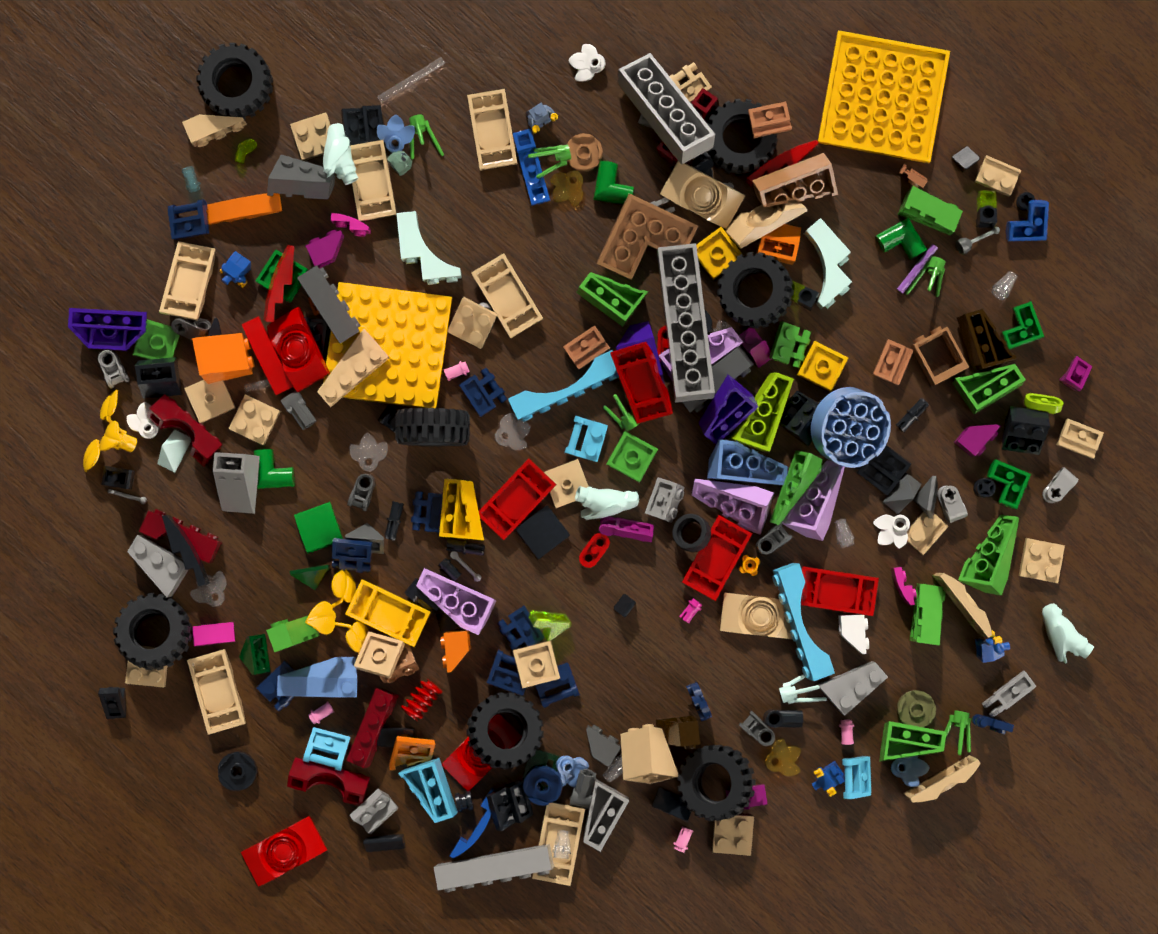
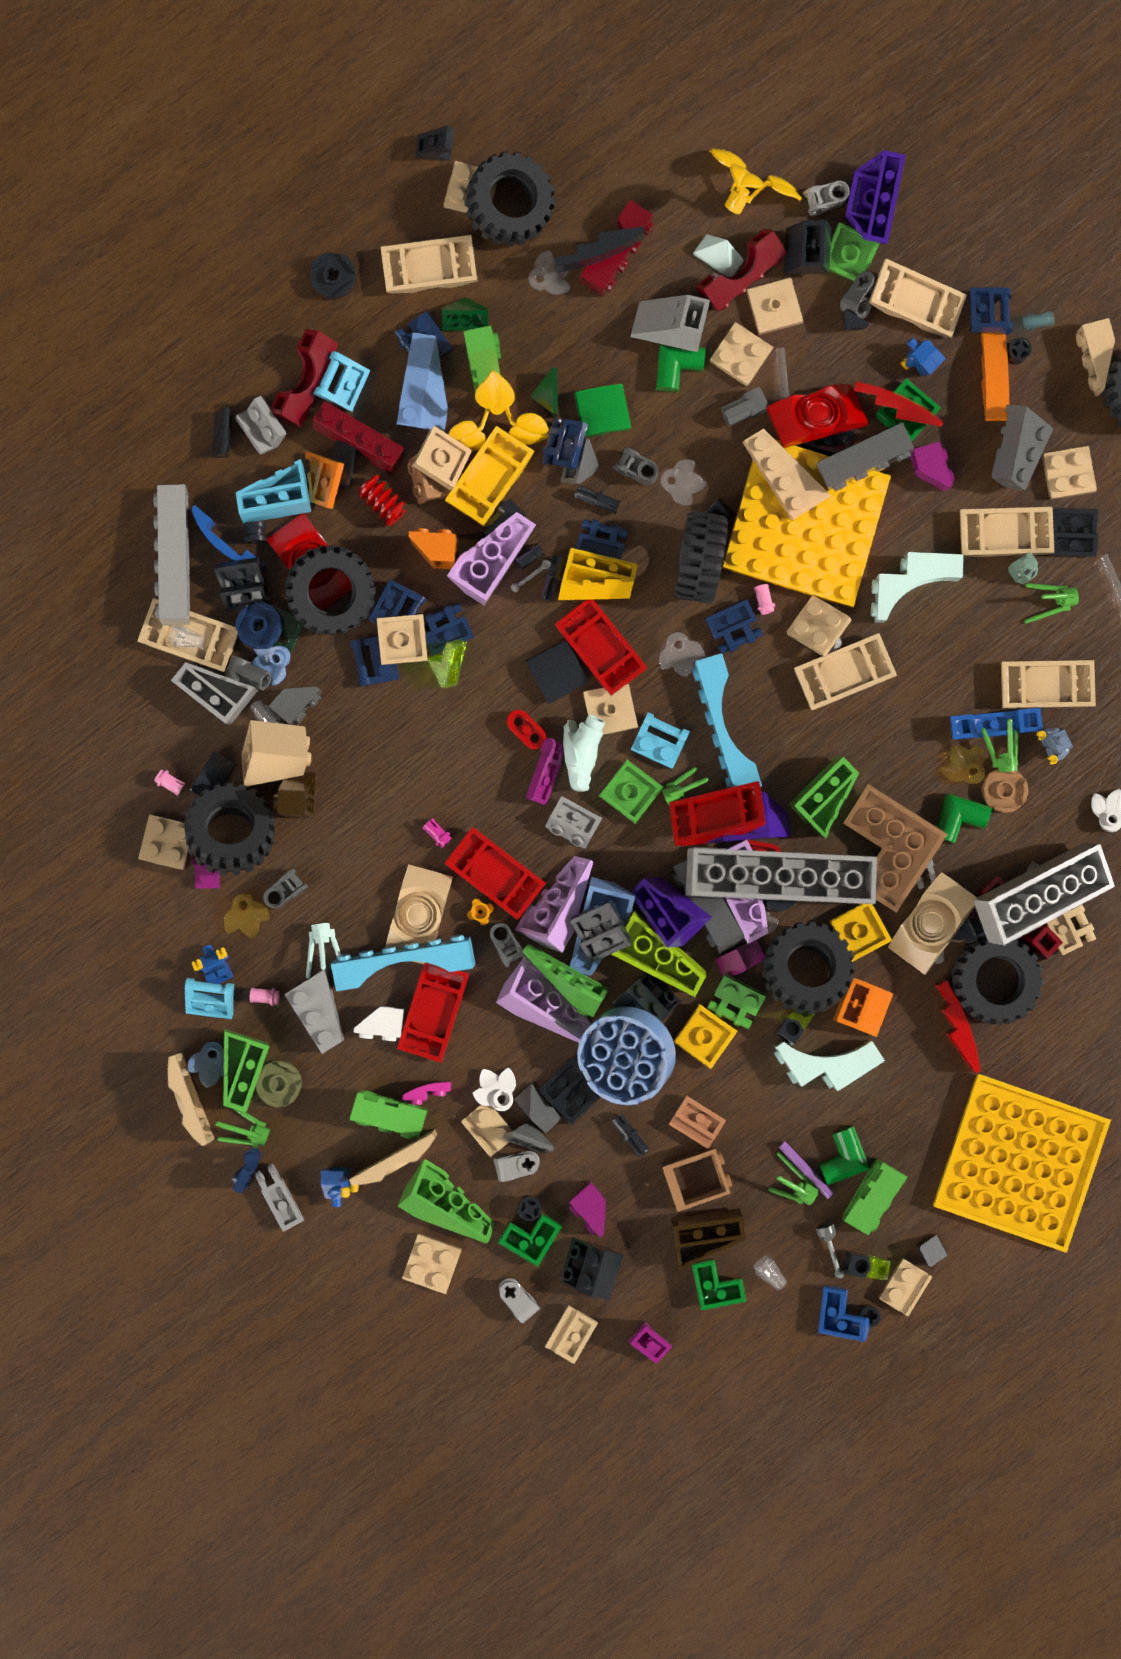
camera: 100 degrees right, 0 degrees up
(118, 477) = (696, 186): black slope -> none
(139, 422) = (757, 219): white plate -> none
(143, 500) = (666, 211): light grey hinge -> none
(159, 564) = (587, 217): light grey wedge -> none
(213, 634) = (496, 270): dark pink slope -> none
(216, 189) = (1020, 345): none -> black wheel
(223, 357) = (821, 325): orange slope -> none
(243, 149) = (1066, 388): clear neon green arm -> none
(267, 355) = (816, 378): red slope -> none
(284, 851) = (231, 316): red slope -> none
(321, 713) = (385, 381): bright pink pin -> none
(338, 155) = (1042, 495): light aqua animal -> none
(356, 226) = (954, 504): dark pink slope -> none
(395, 131) = (1062, 568): medium blue plate -> none
(586, 347) = (769, 757): nougat plate -> none
(624, 605) = (455, 755): black slope -> none
(678, 529) = (535, 833): black tyre -> none
(699, 701) = (328, 824): dark blue plate -> none
(752, 463) = (601, 931): none -> black slope
(762, 220) = (893, 993): tan slope -> none
(769, 119) = (1012, 1015): nougat plate -> none
(785, 718) = (291, 925): black piece -> none
(796, 182) = (931, 1039): medium nougat wedge -> none
(843, 534) = (498, 1030): clear cone -> none
(914, 177) = (917, 1183): nougat plate -> none
(988, 387) = (649, 1231): bright green wedge -> none
(1043, 403) = (620, 1296): lime plate -> none
(1064, 635) = (339, 1274): light aqua animal -> none

